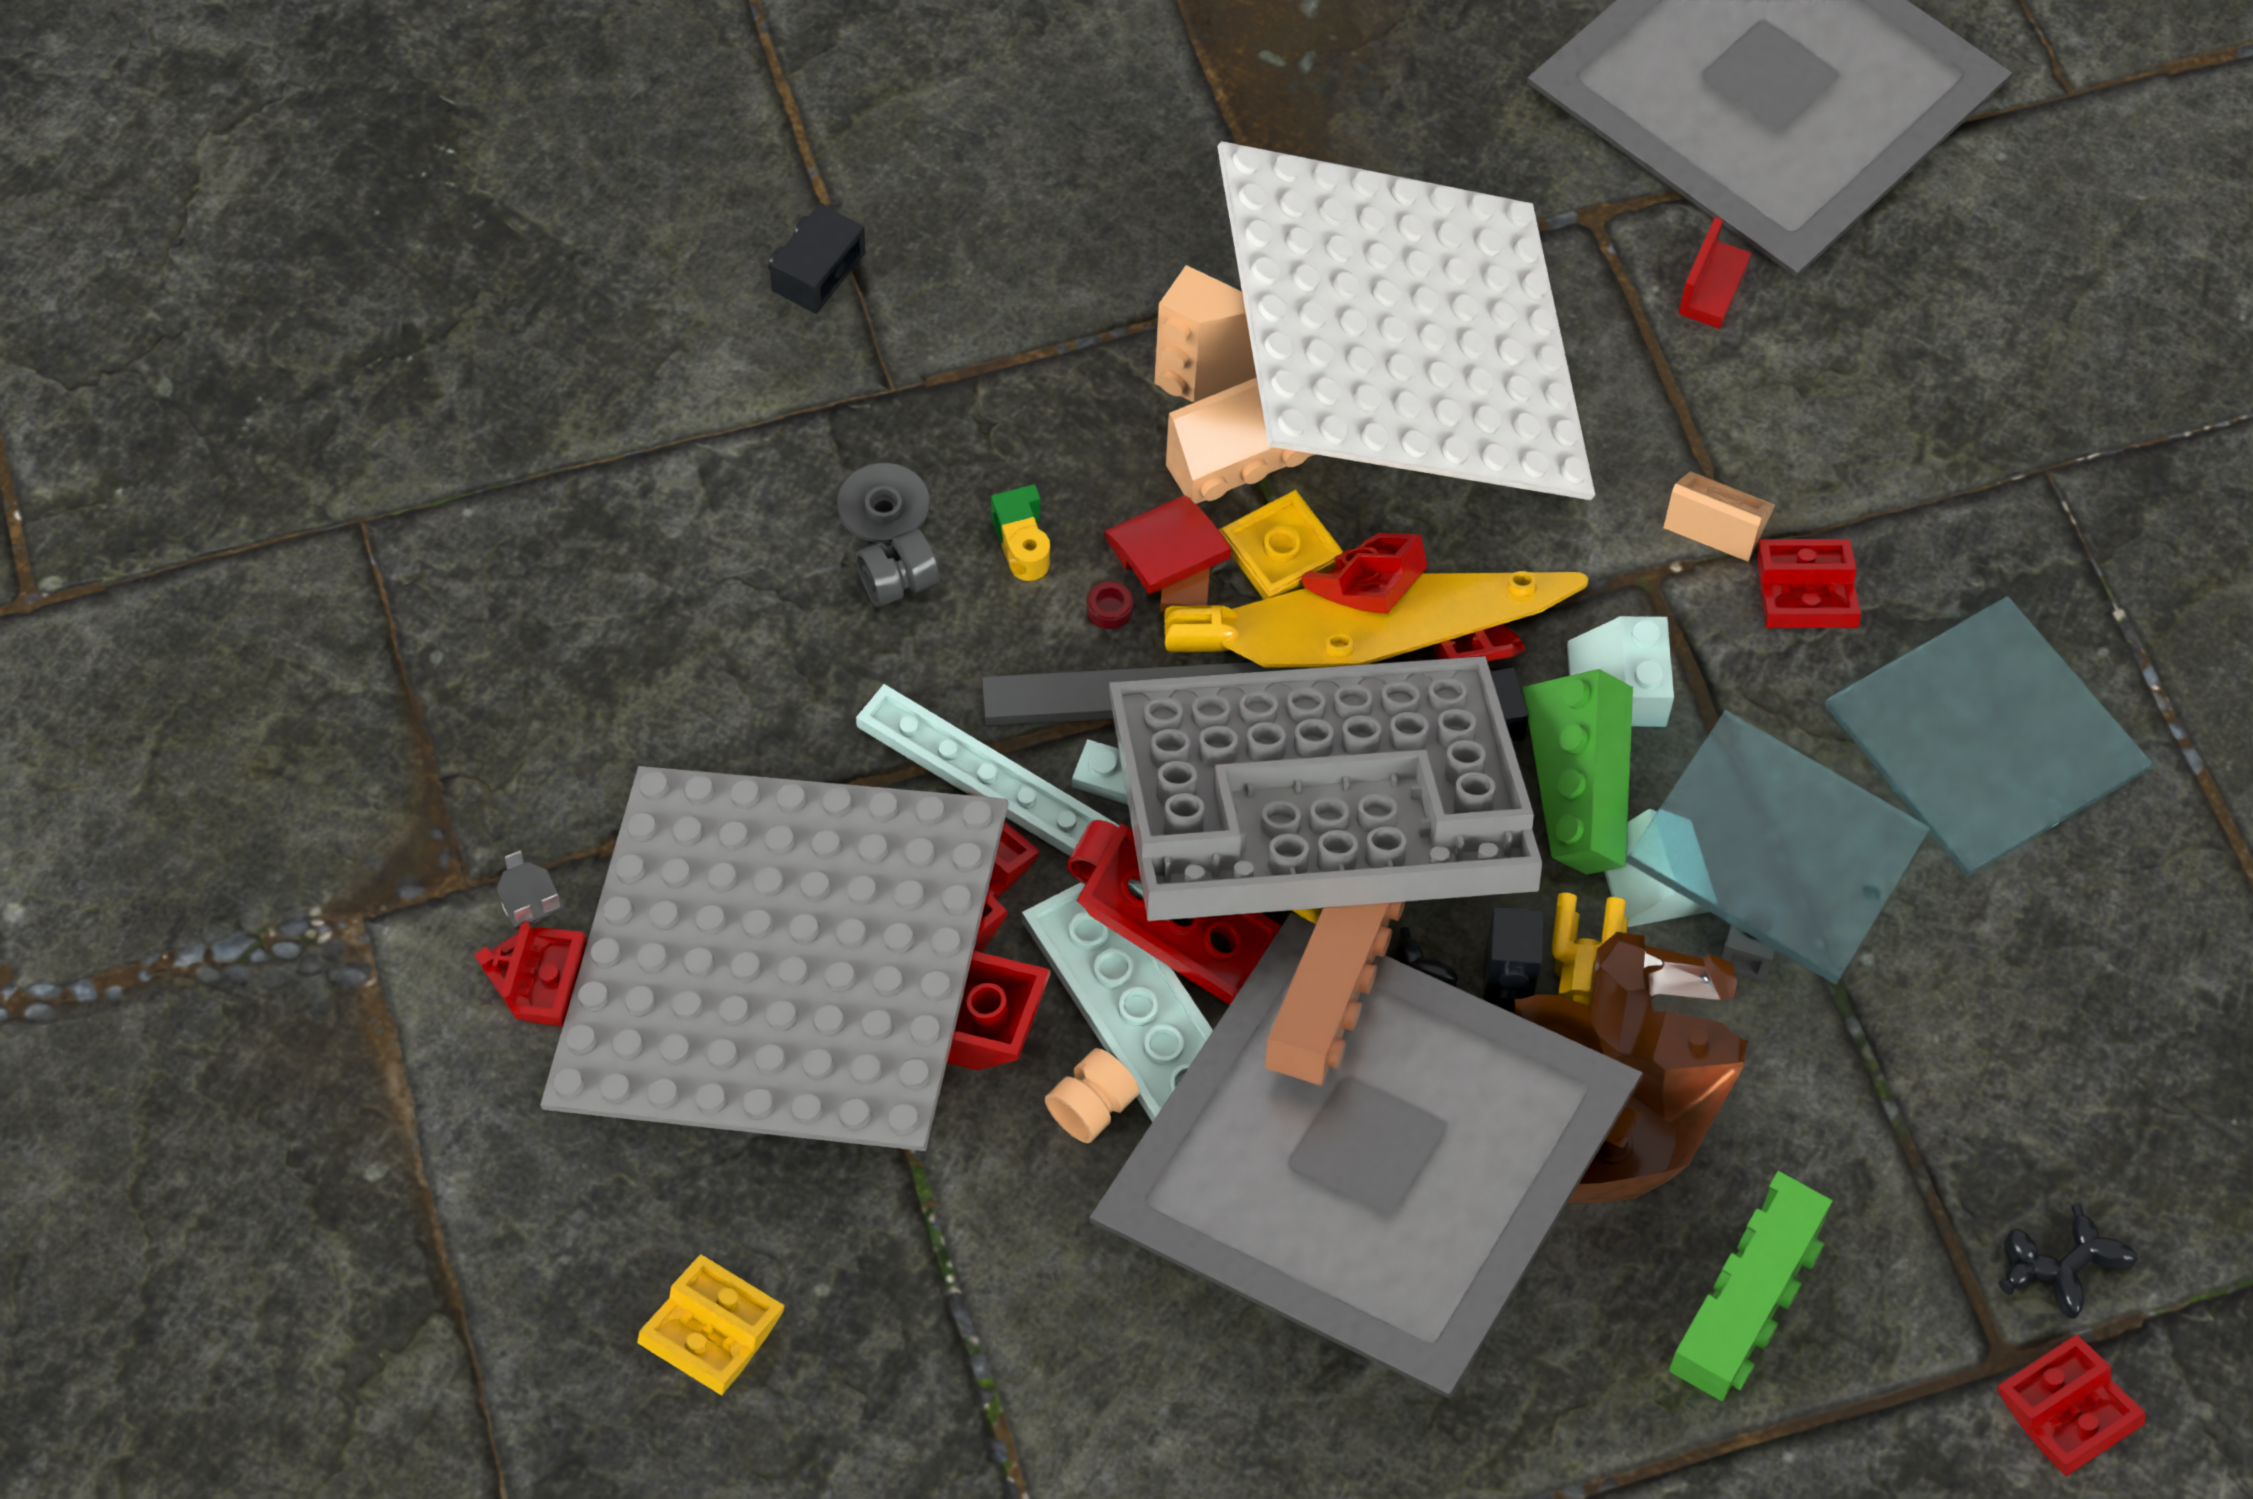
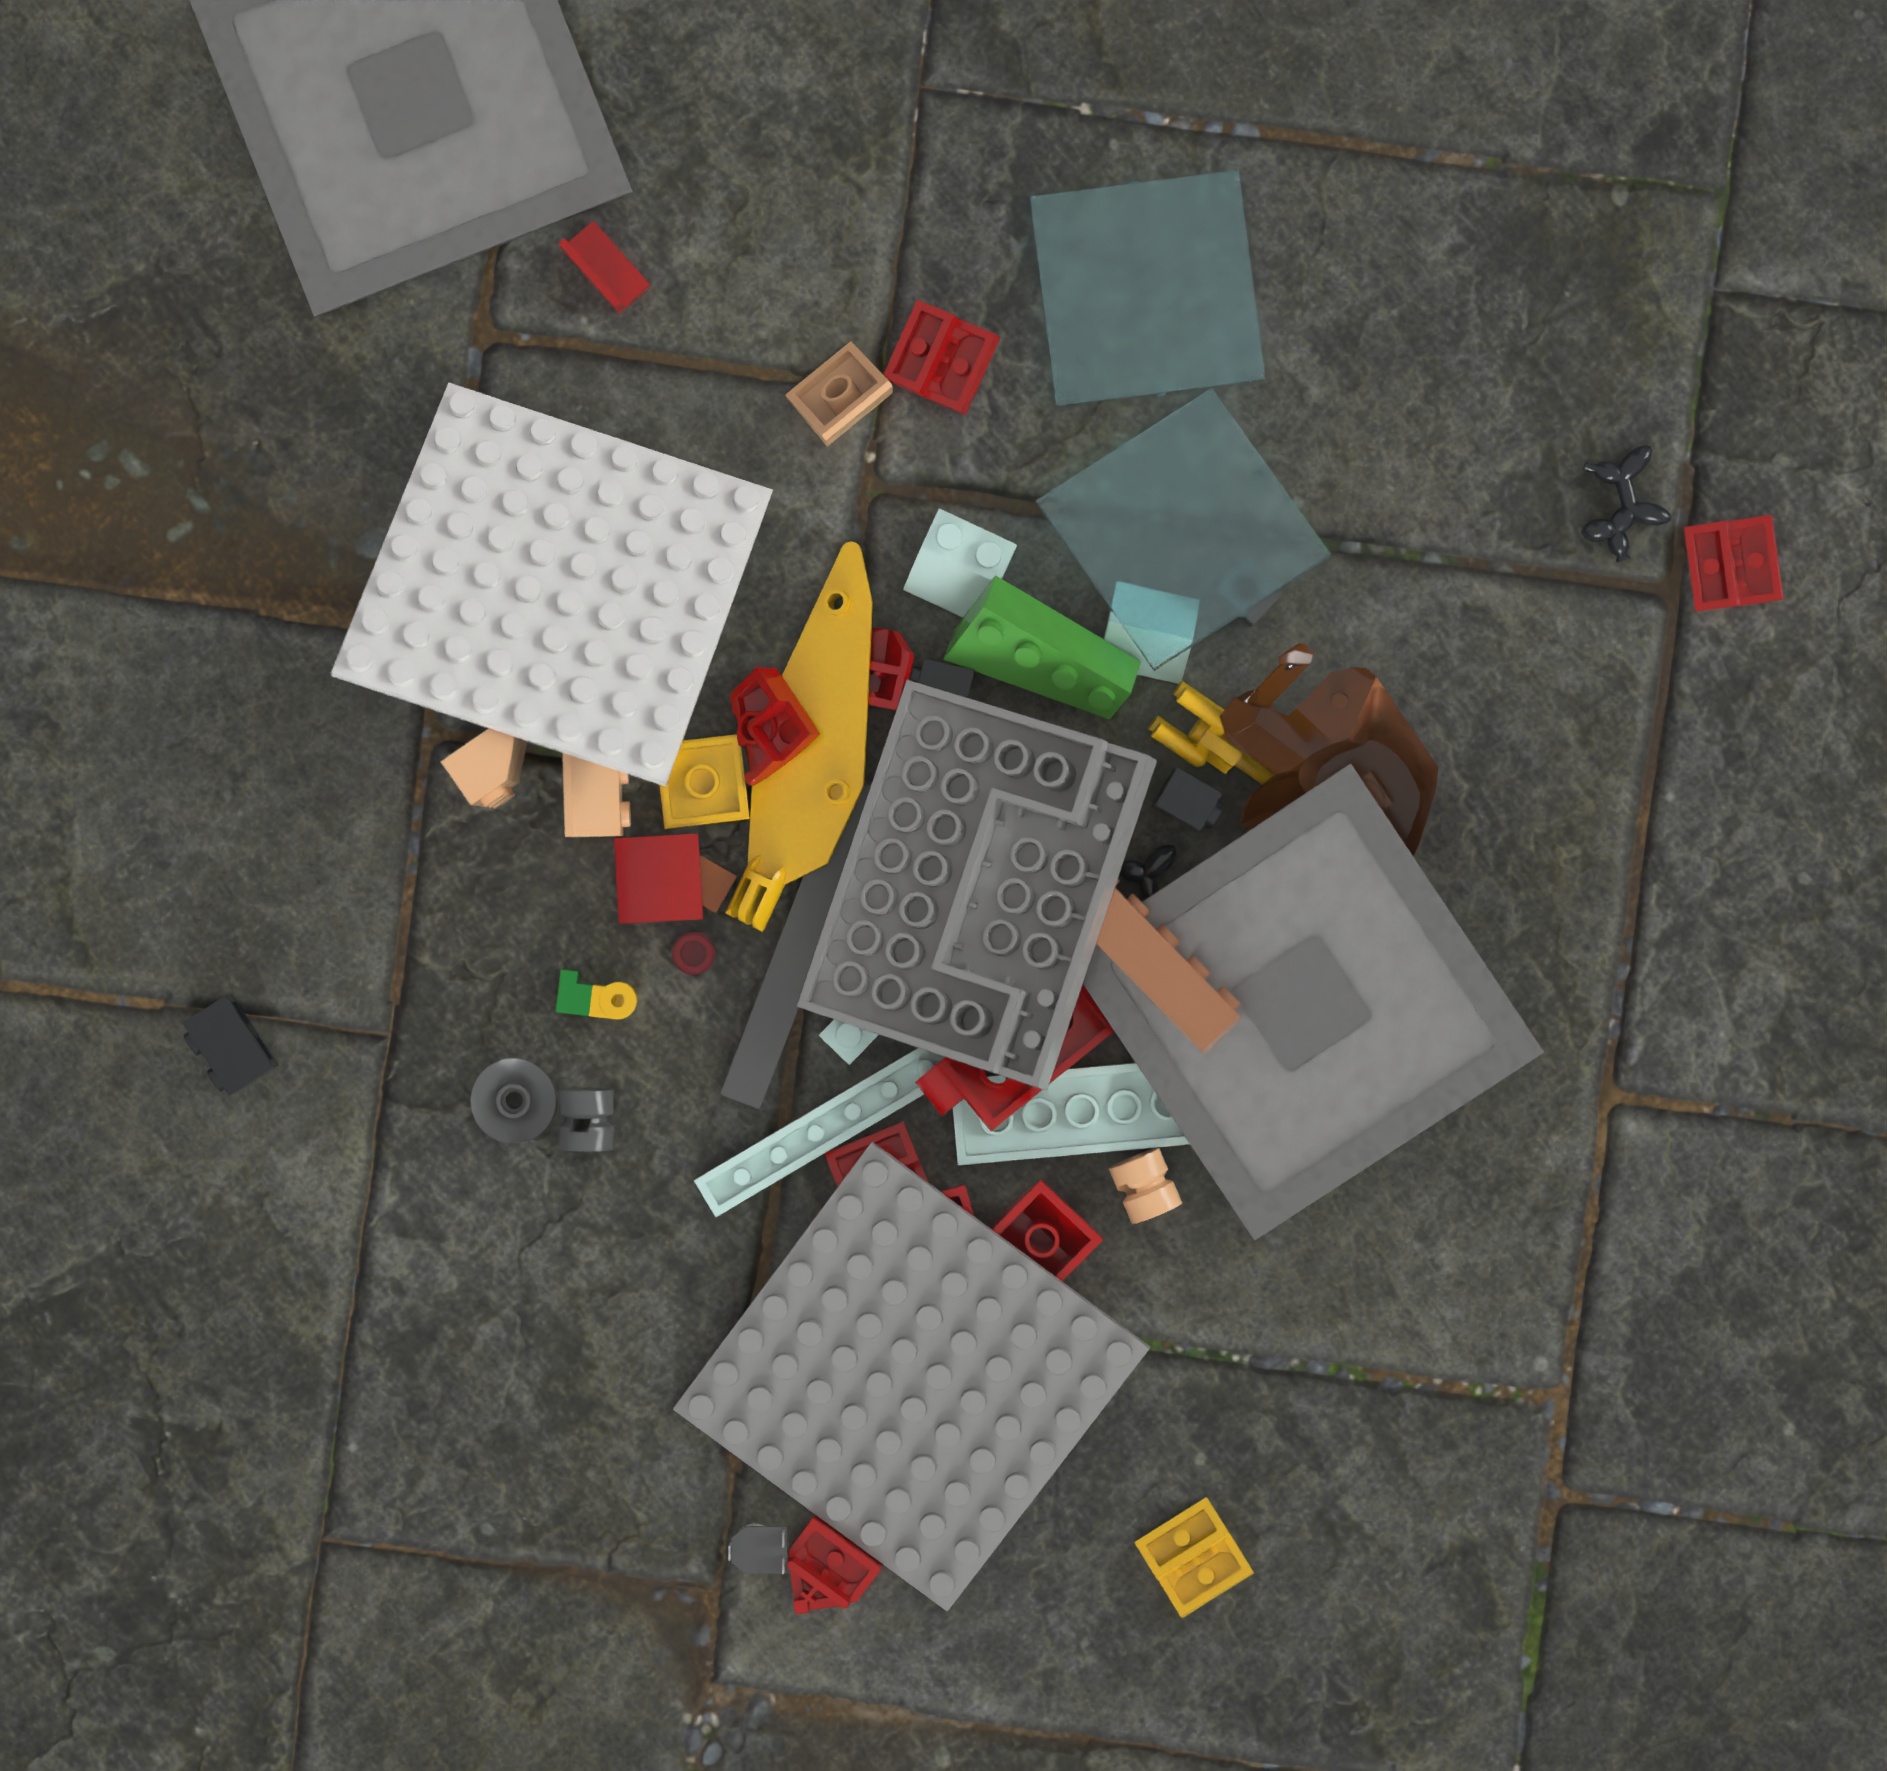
camera: 60 degrees left, 30 degrees up
(1752, 1288) = (1542, 762): bright green wedge -> none

